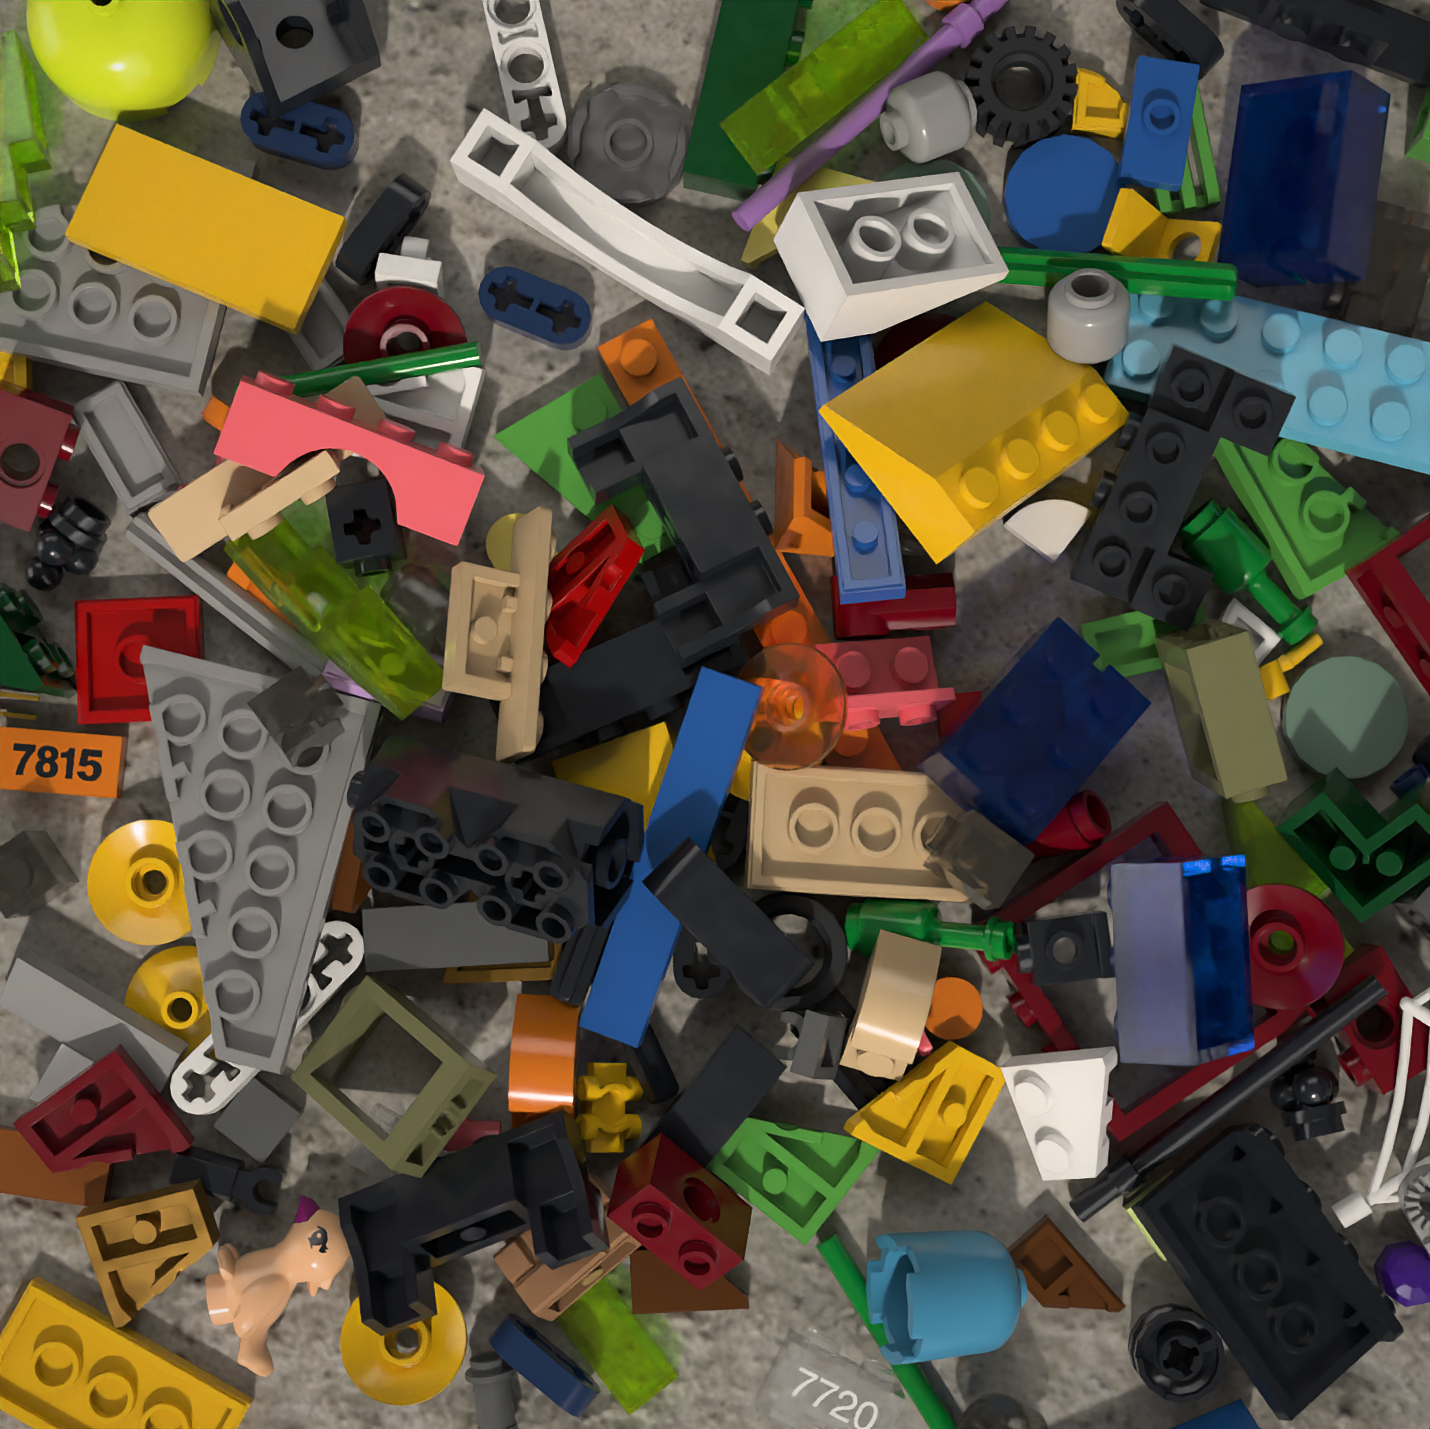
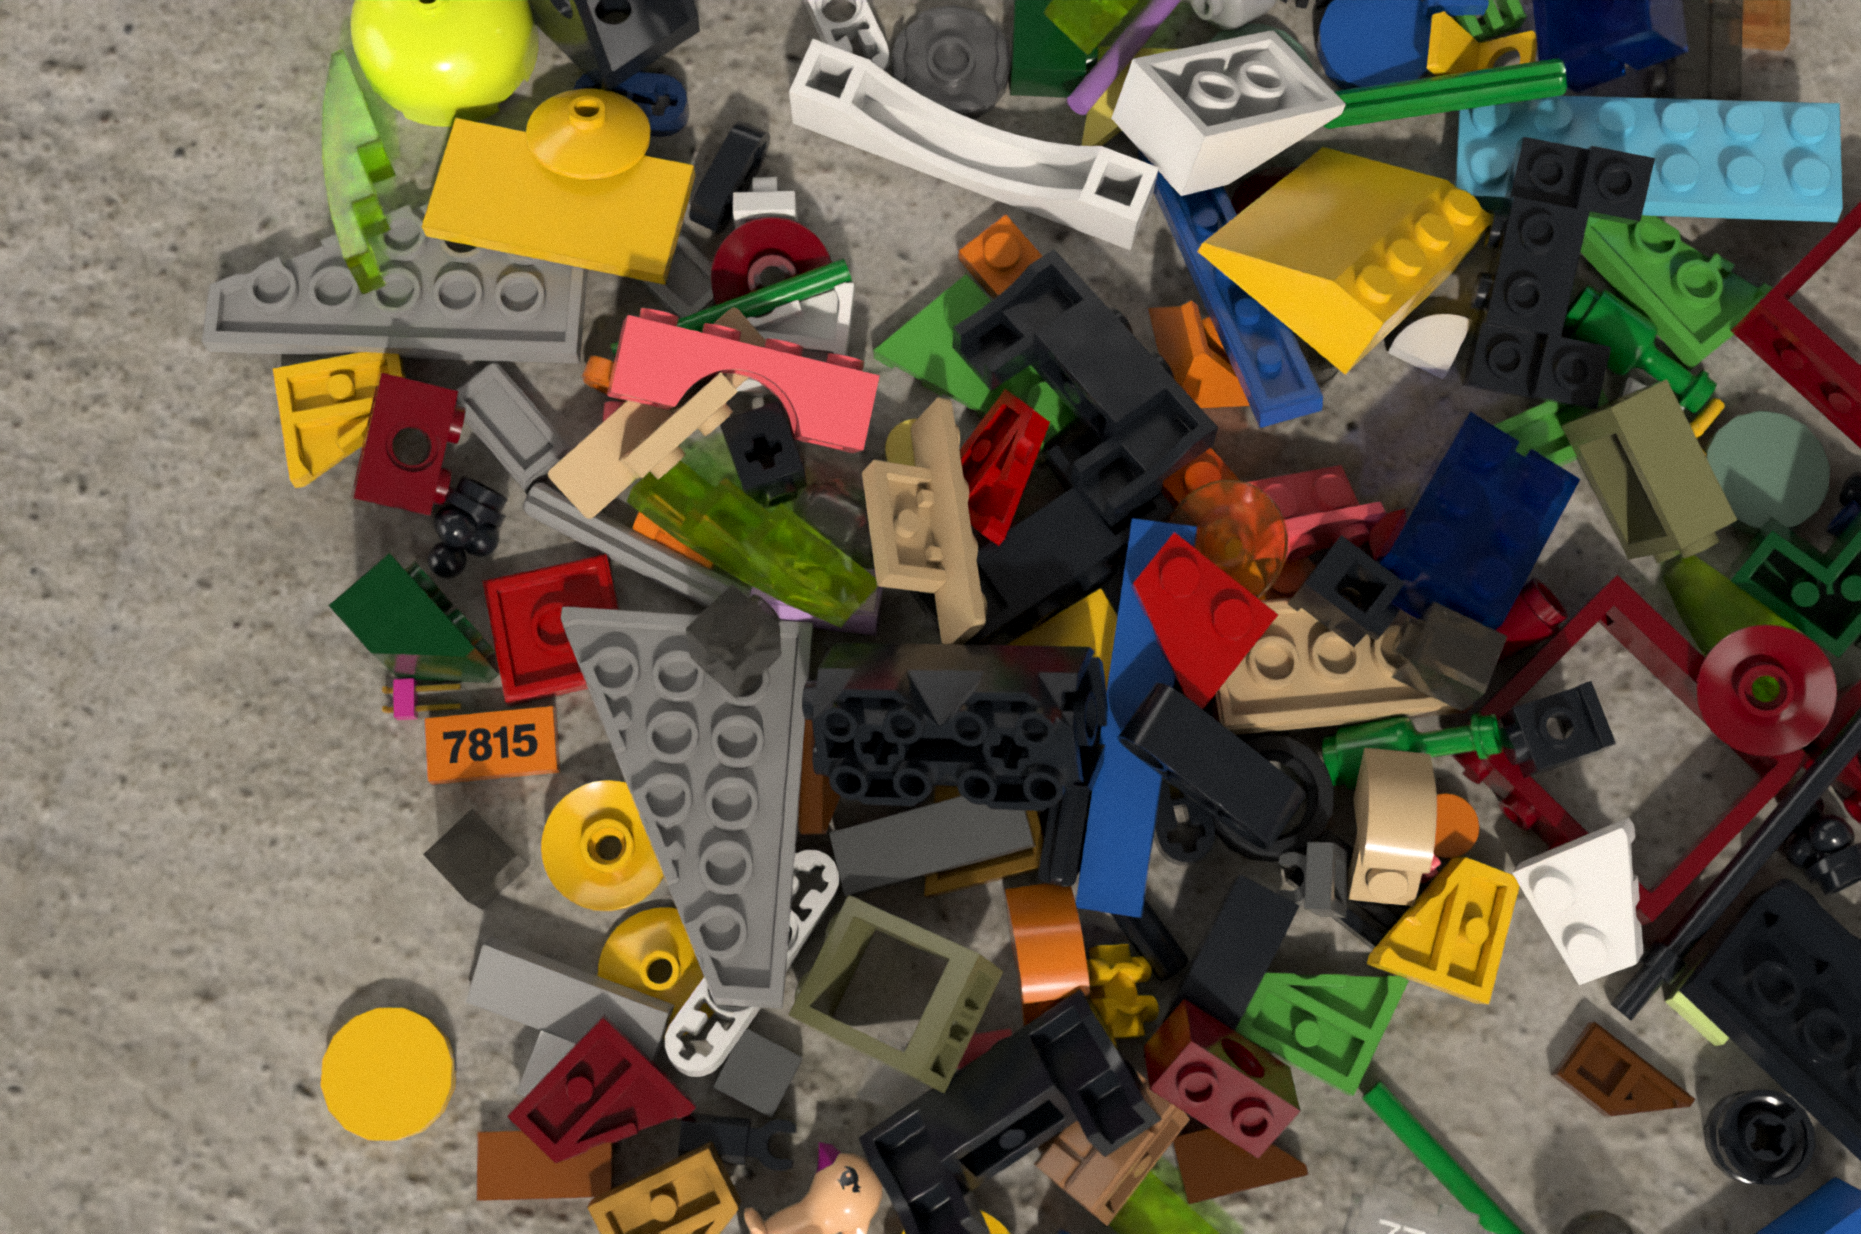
camera: 15 degrees left, 10 degrees down
(245, 182) = (588, 134): none -> yellow dish
(541, 295) = (892, 220): dark blue beam -> none
(744, 779) = (1199, 617): none -> red wing
(899, 755) = (1356, 575): none -> black brick
(926, 606) = (1300, 442): dark red piece -> none
(943, 1294) = (1508, 1114): dark azure cylinder -> none
(1088, 316) = (1430, 132): light grey head -> none
(1181, 958) = (1676, 709): clear blue piece -> none

